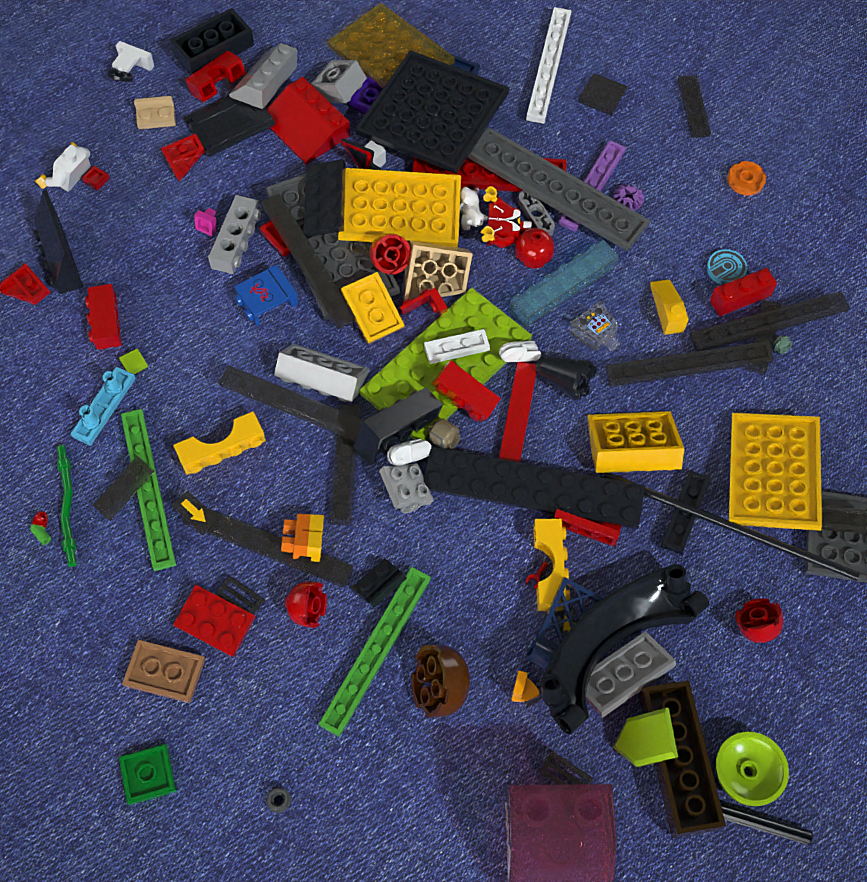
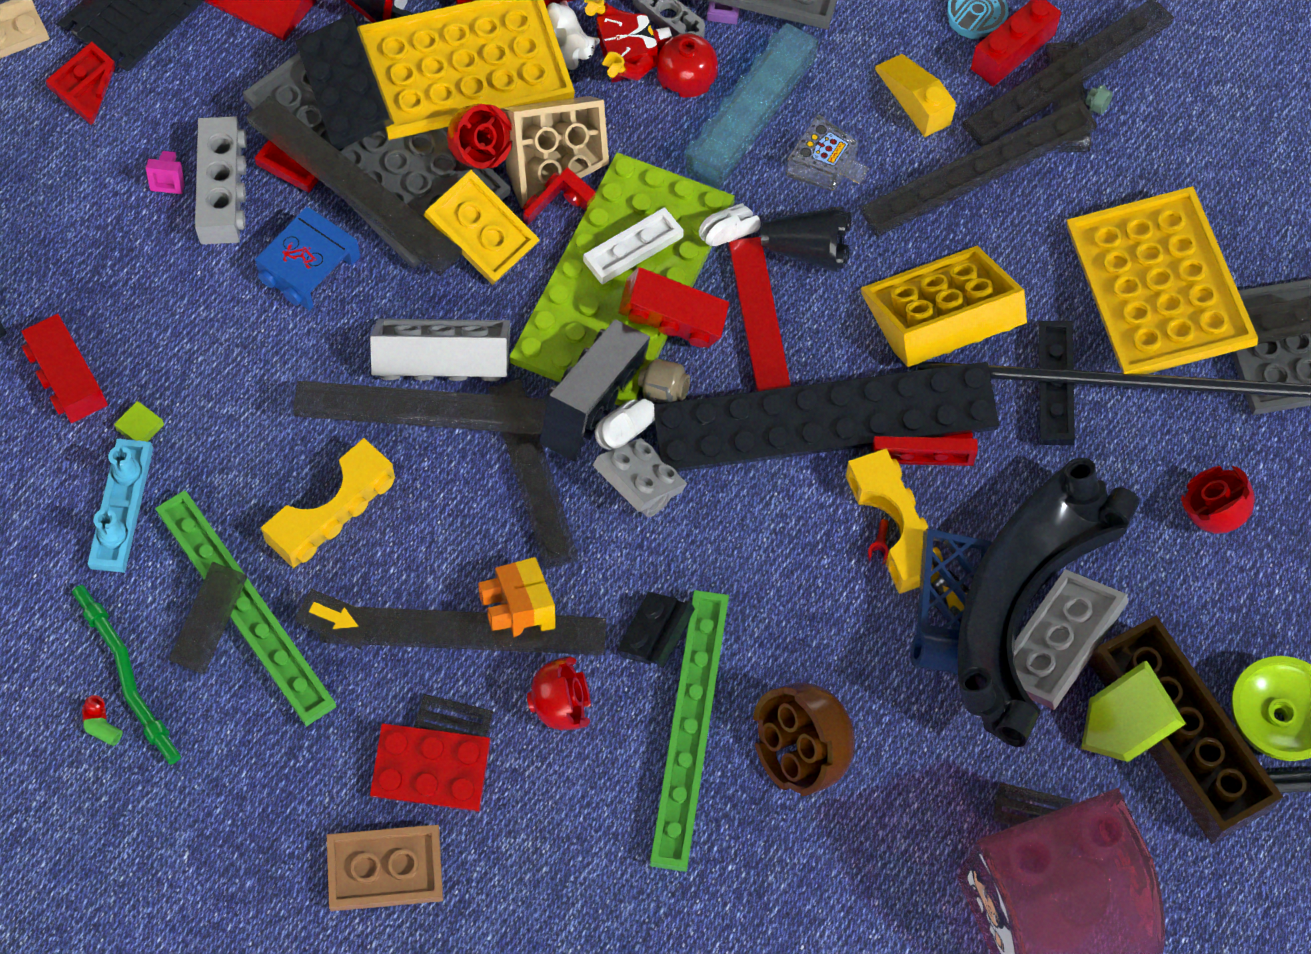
camera: 20 degrees left, 0 degrees up
(524, 688) = (924, 708): light orange tile -> none

